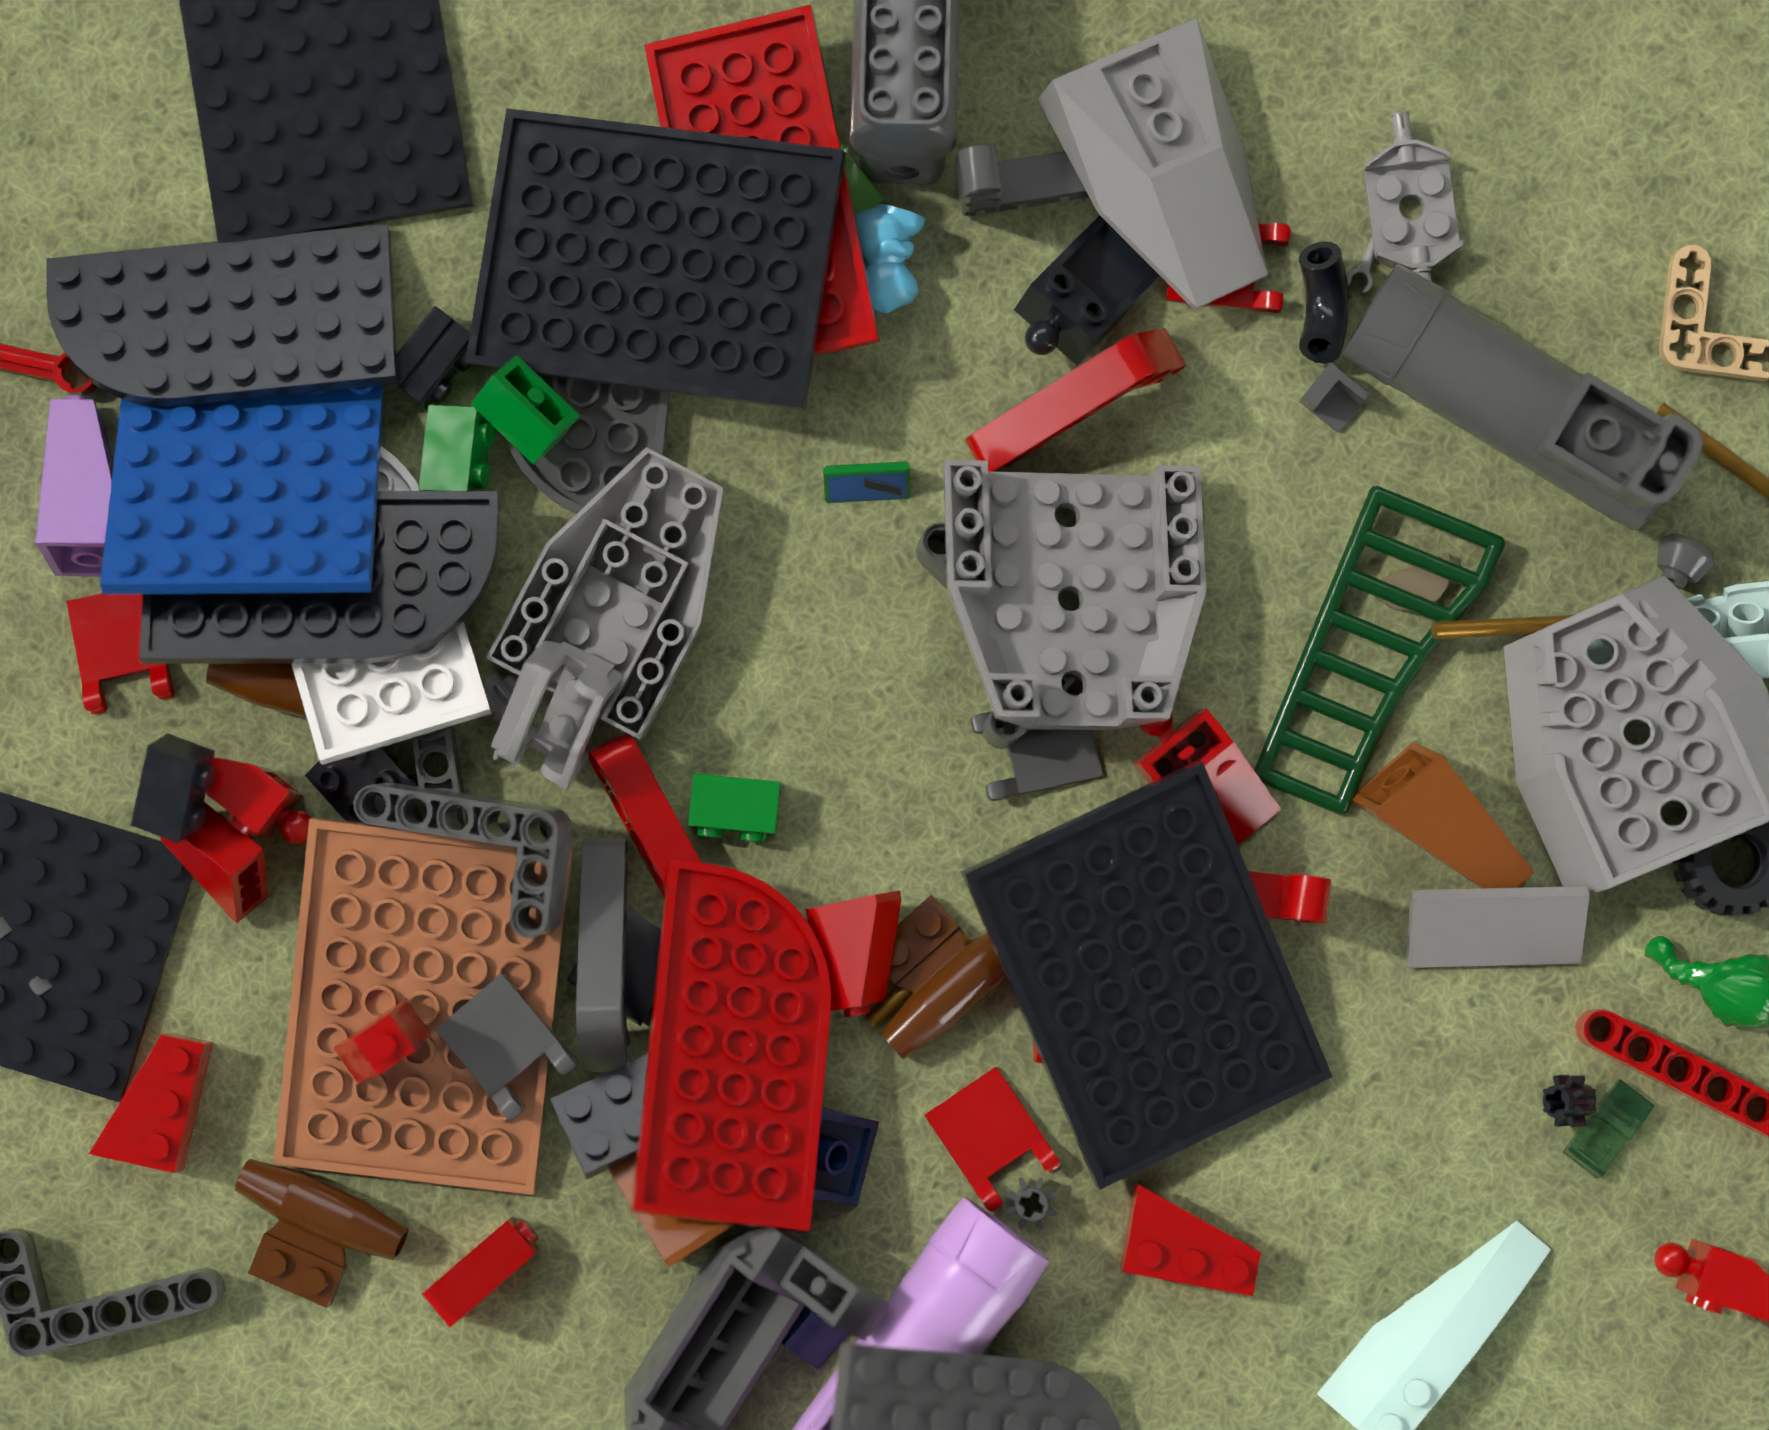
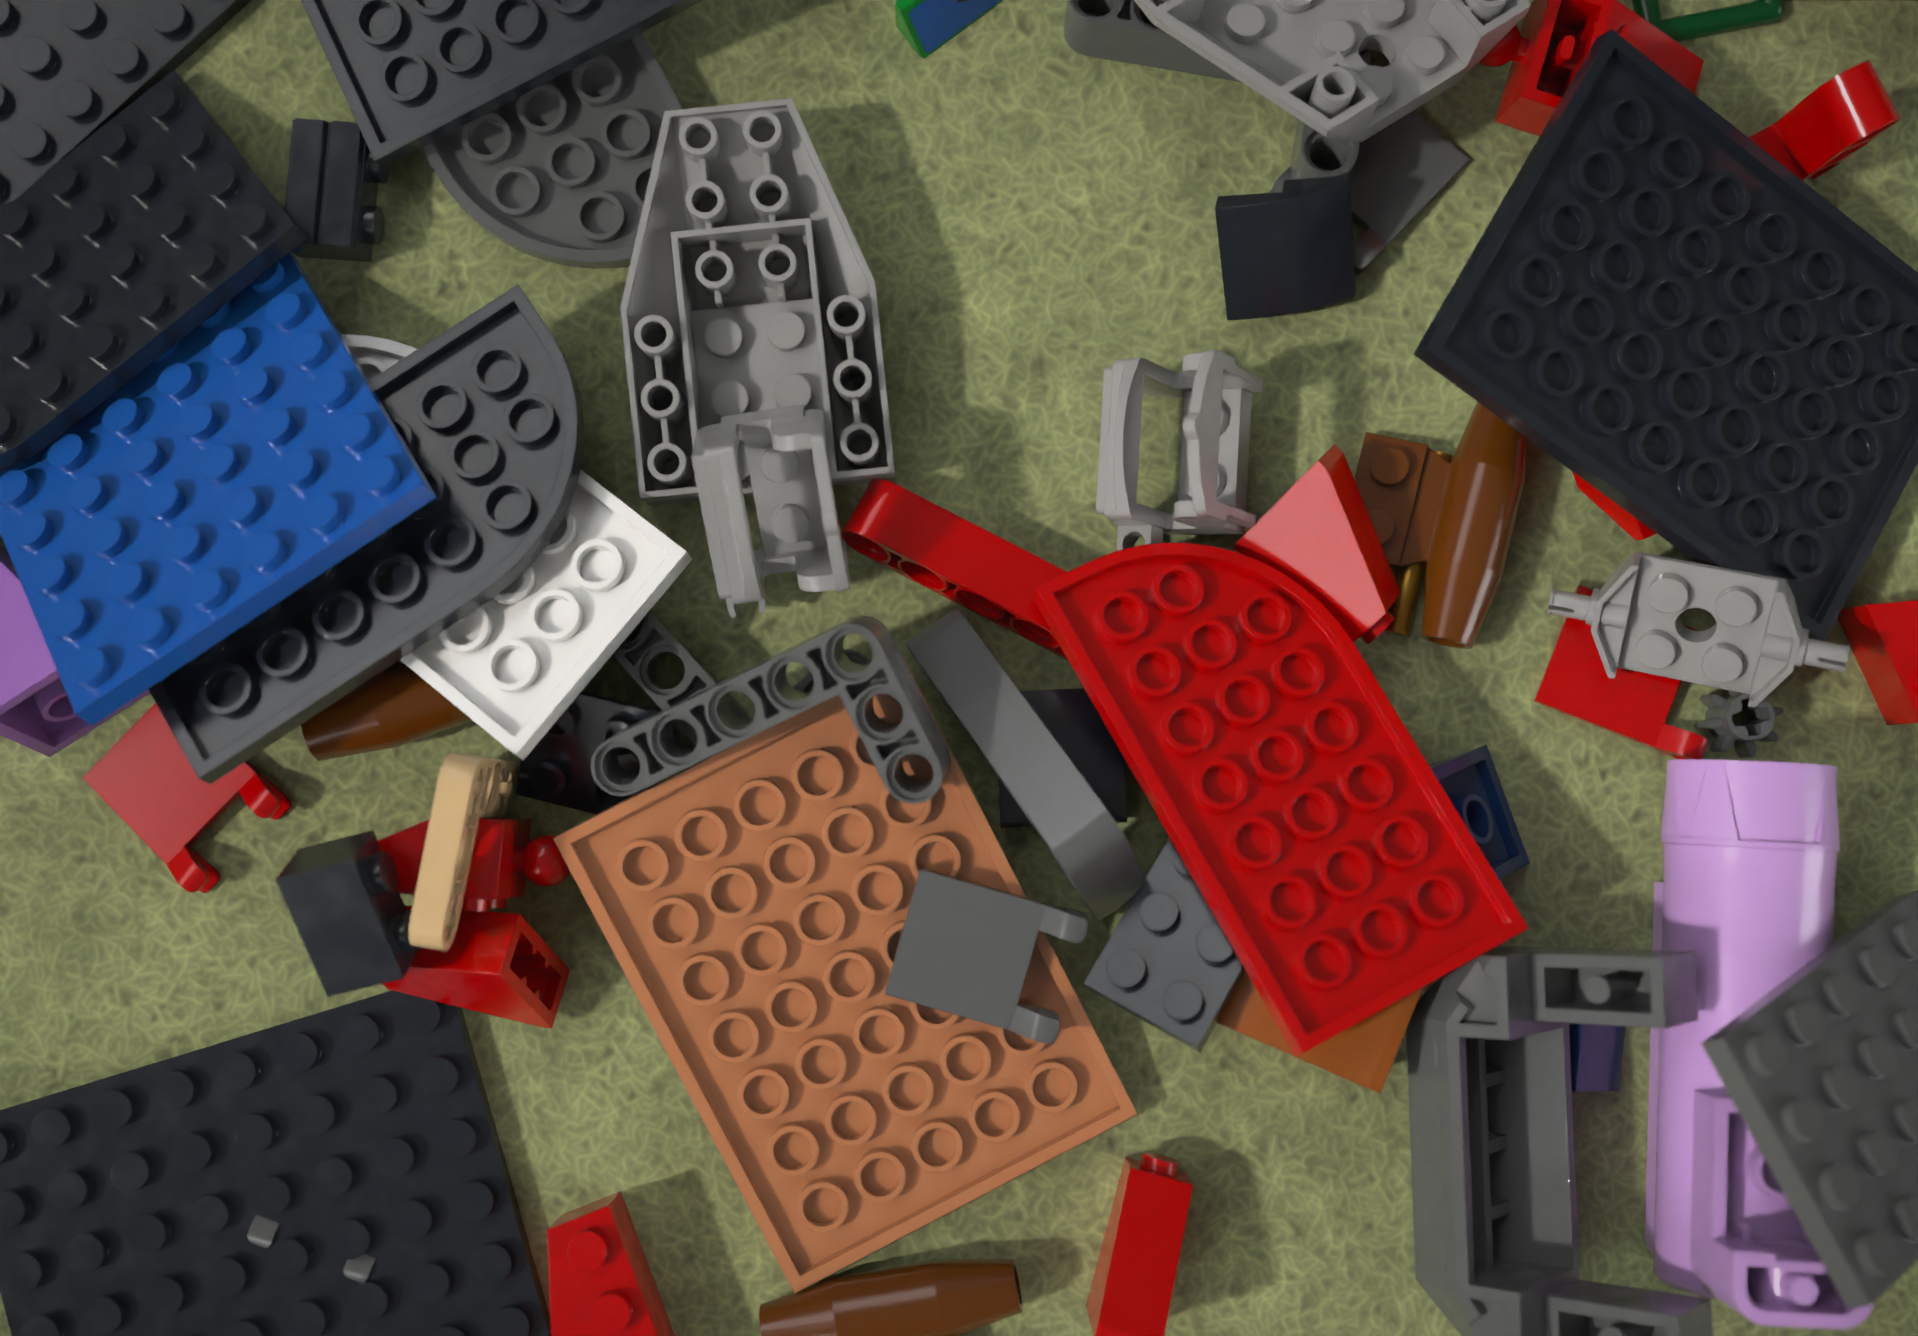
camera: 35 degrees left, 0 degrees up
(280, 763) = (465, 791): none -> tan beam
(382, 1042) = (832, 1054): red slope -> none
(455, 450) = (432, 271): brick -> none
(498, 694) = (690, 534): dark grey gear -> none
(524, 409) = (483, 164): green brick -> none
(734, 805) = (1050, 483): green brick -> none
(825, 843) = (1212, 446): none -> light grey animal
(951, 760) = (1286, 248): none -> black slope
(1006, 1110) = (1747, 649): none -> light grey plate

